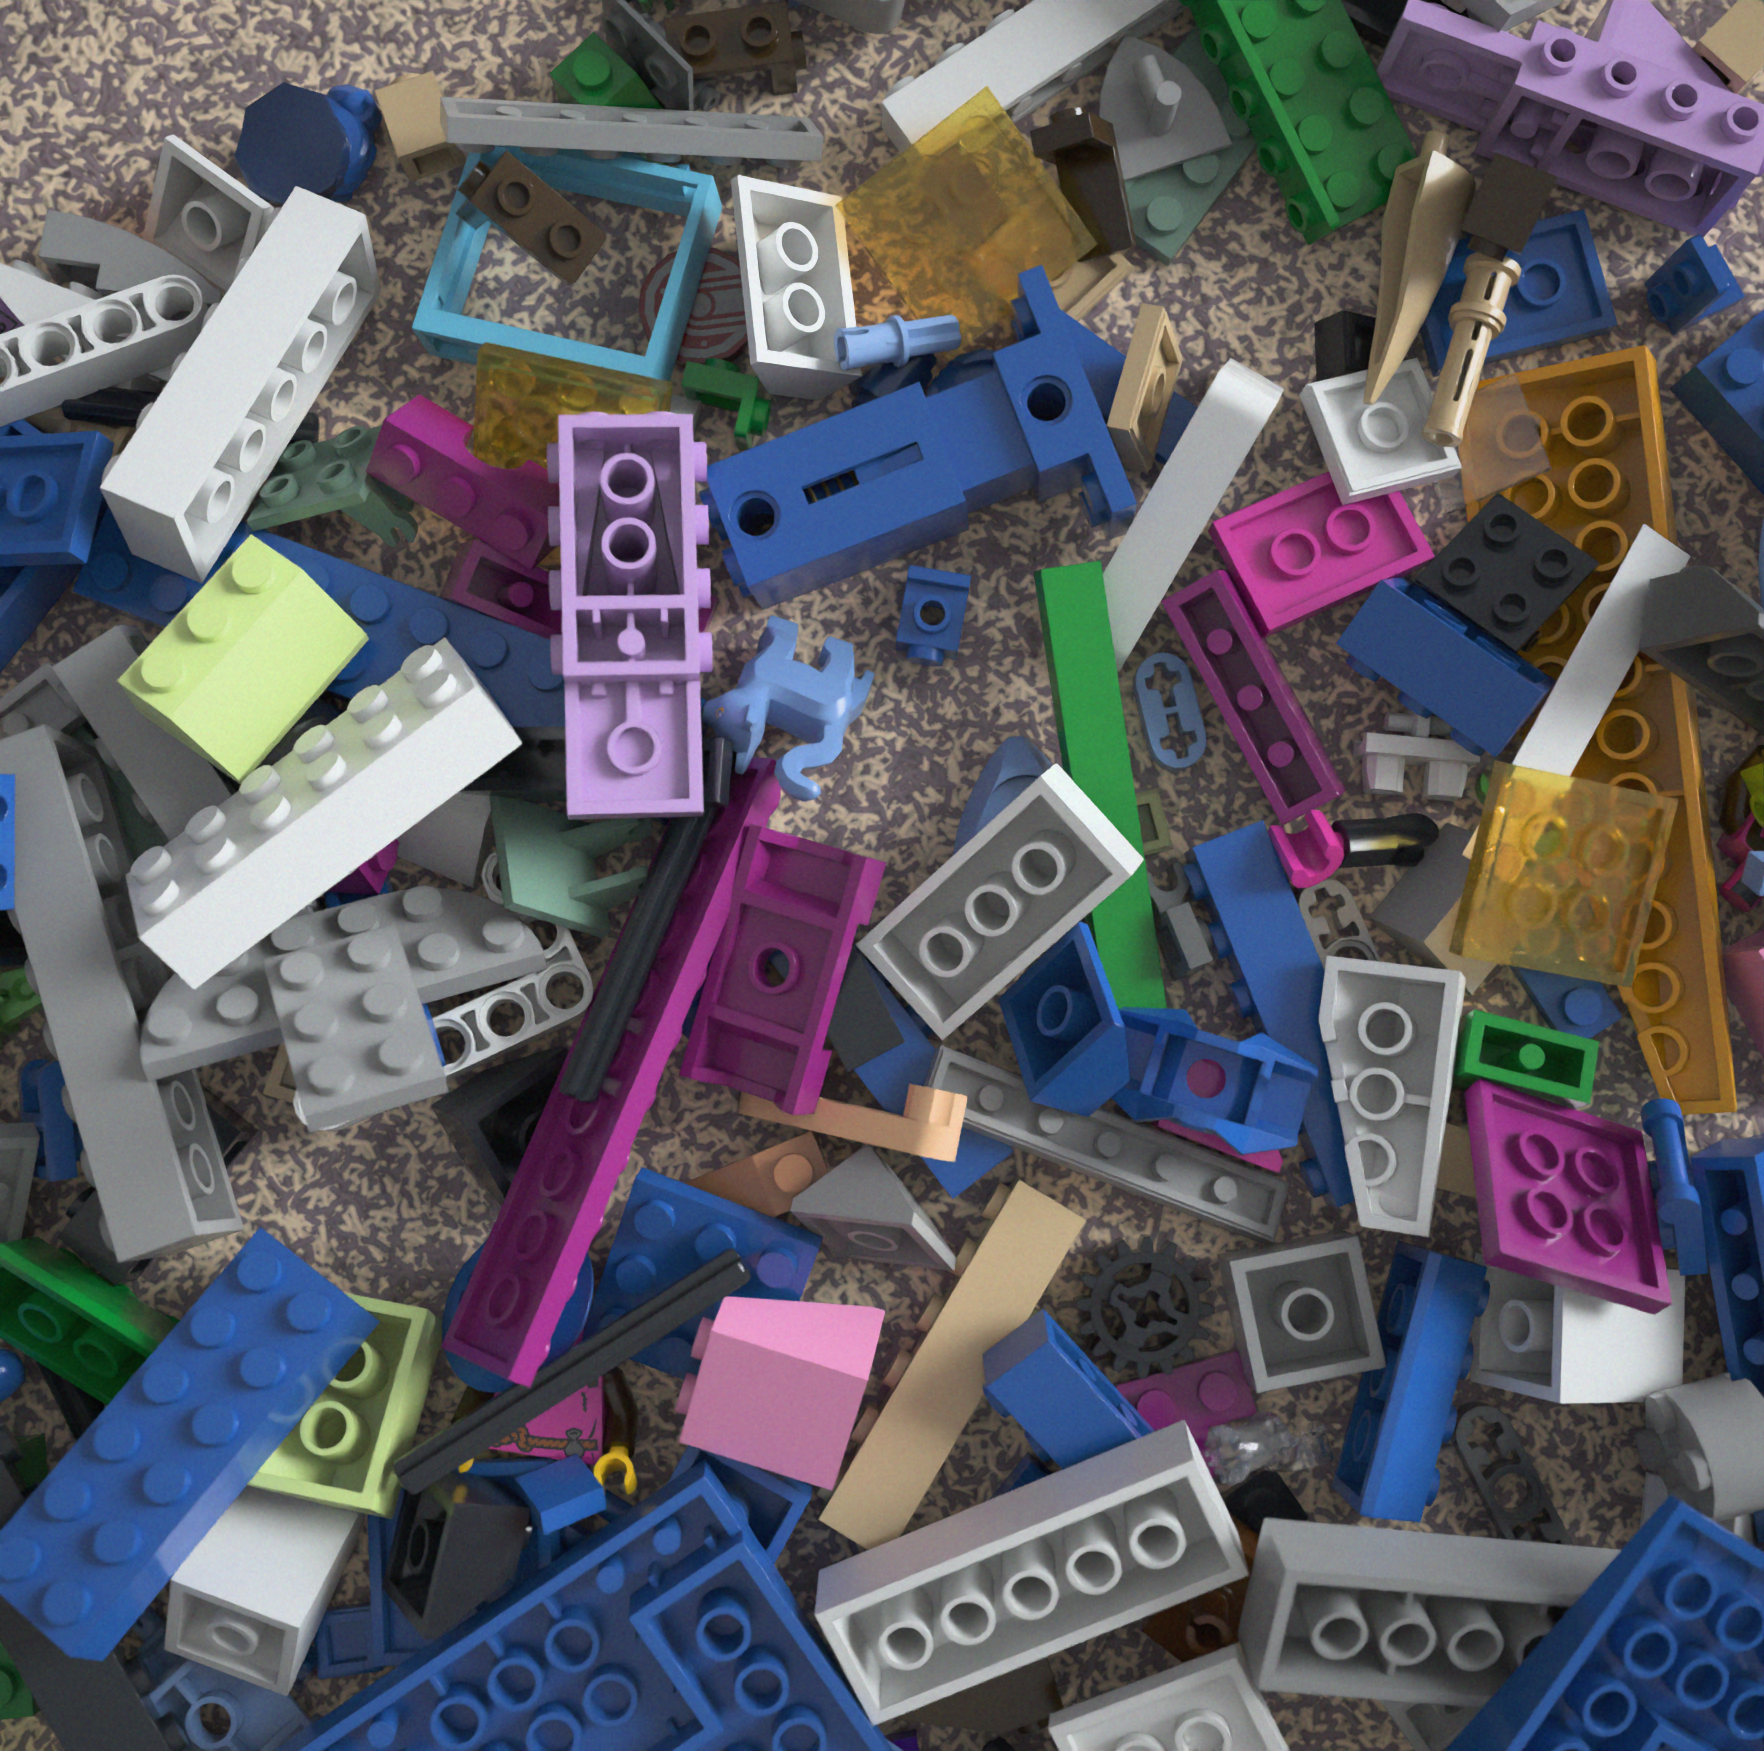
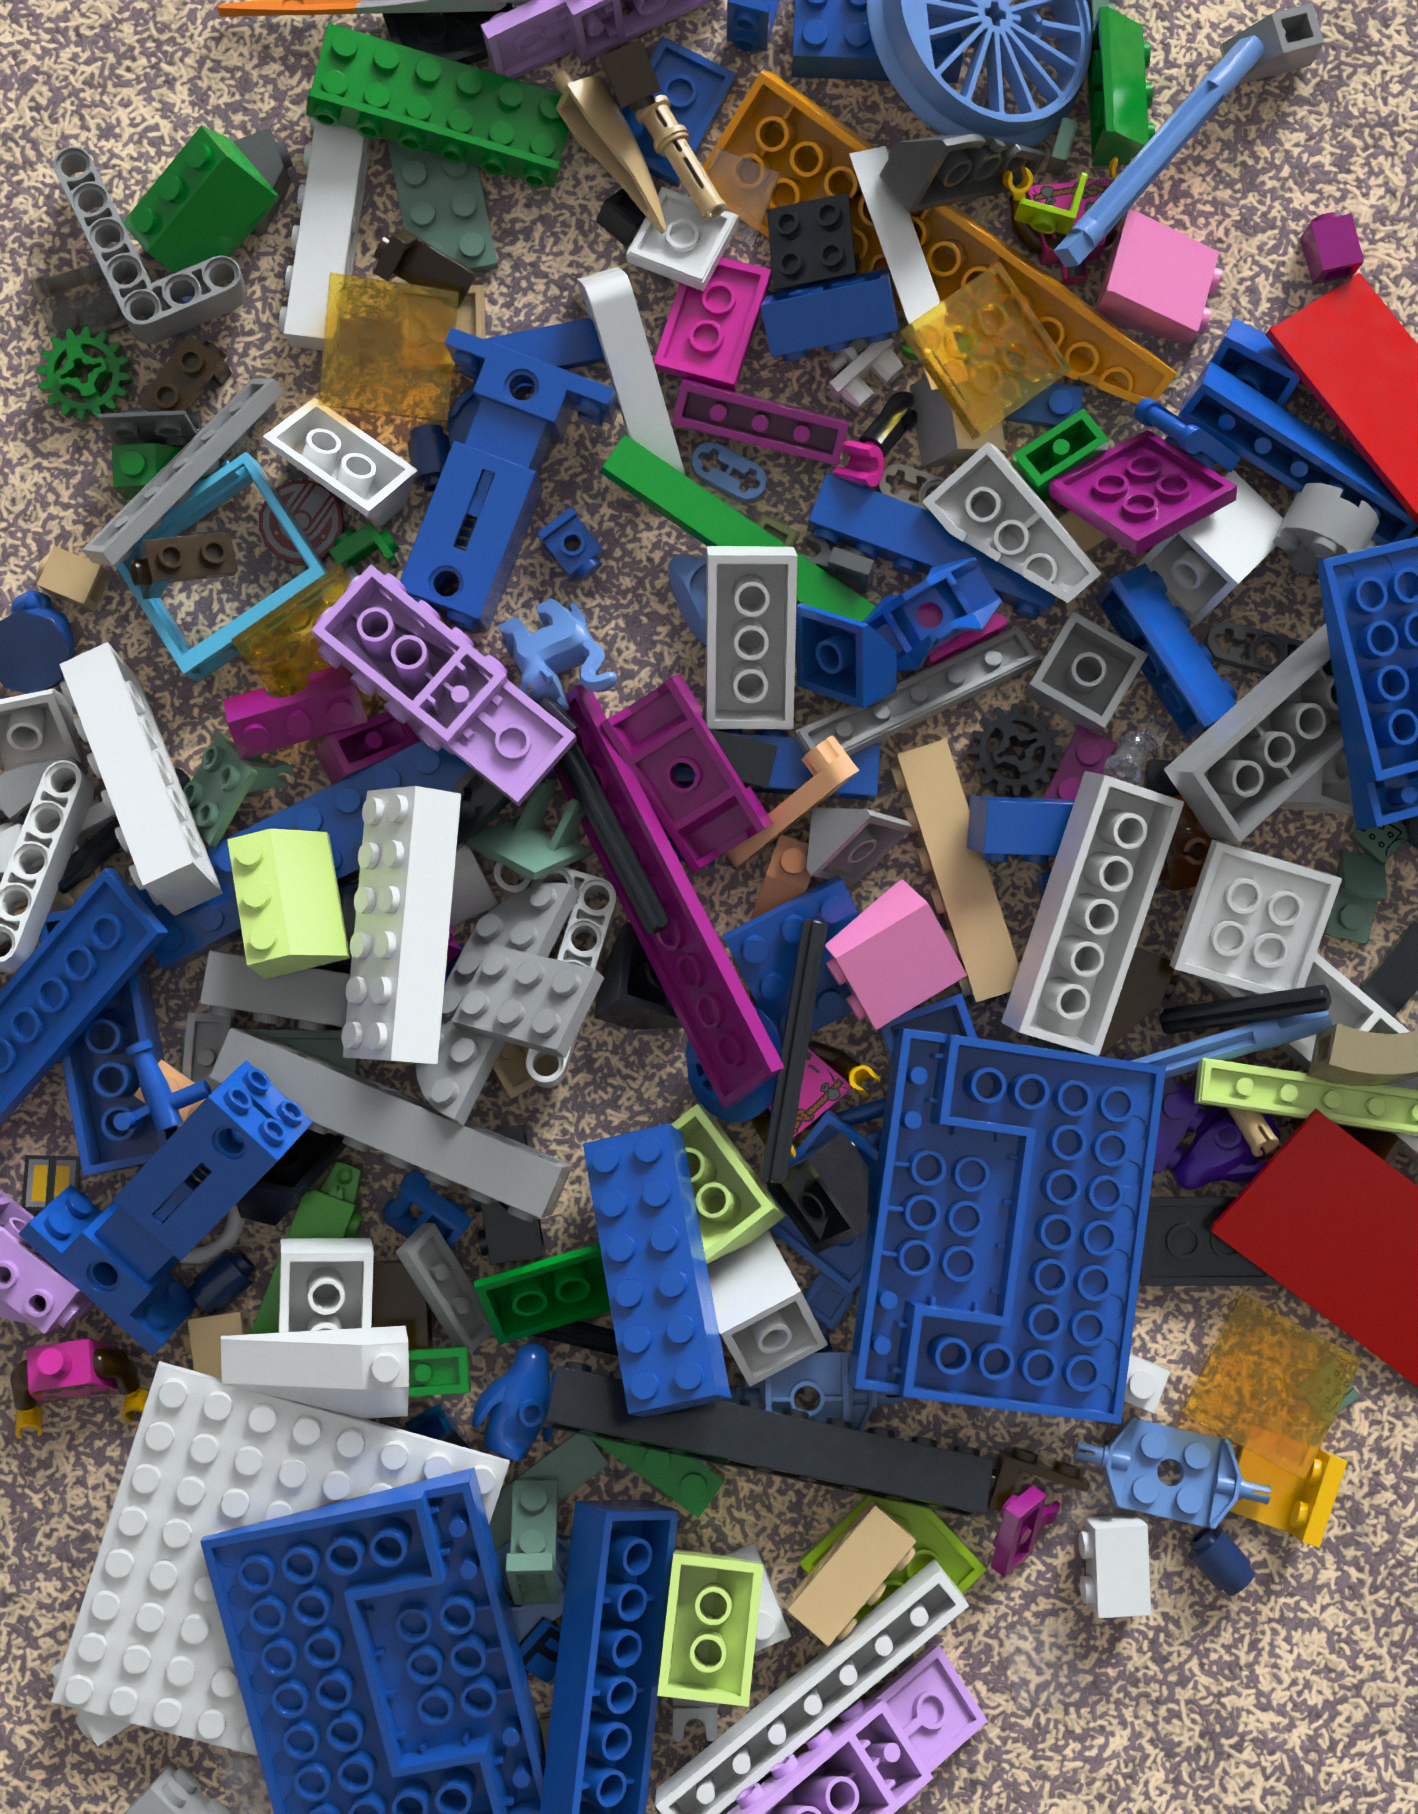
camera: 50 degrees left, 0 degrees up
(561, 1493) = (849, 1111): blue tile -> none
(895, 341) = (416, 436): light blue axle -> none
(1145, 388) = (557, 333): tan tile -> none
(1157, 110) = (415, 199): light grey shield -> none

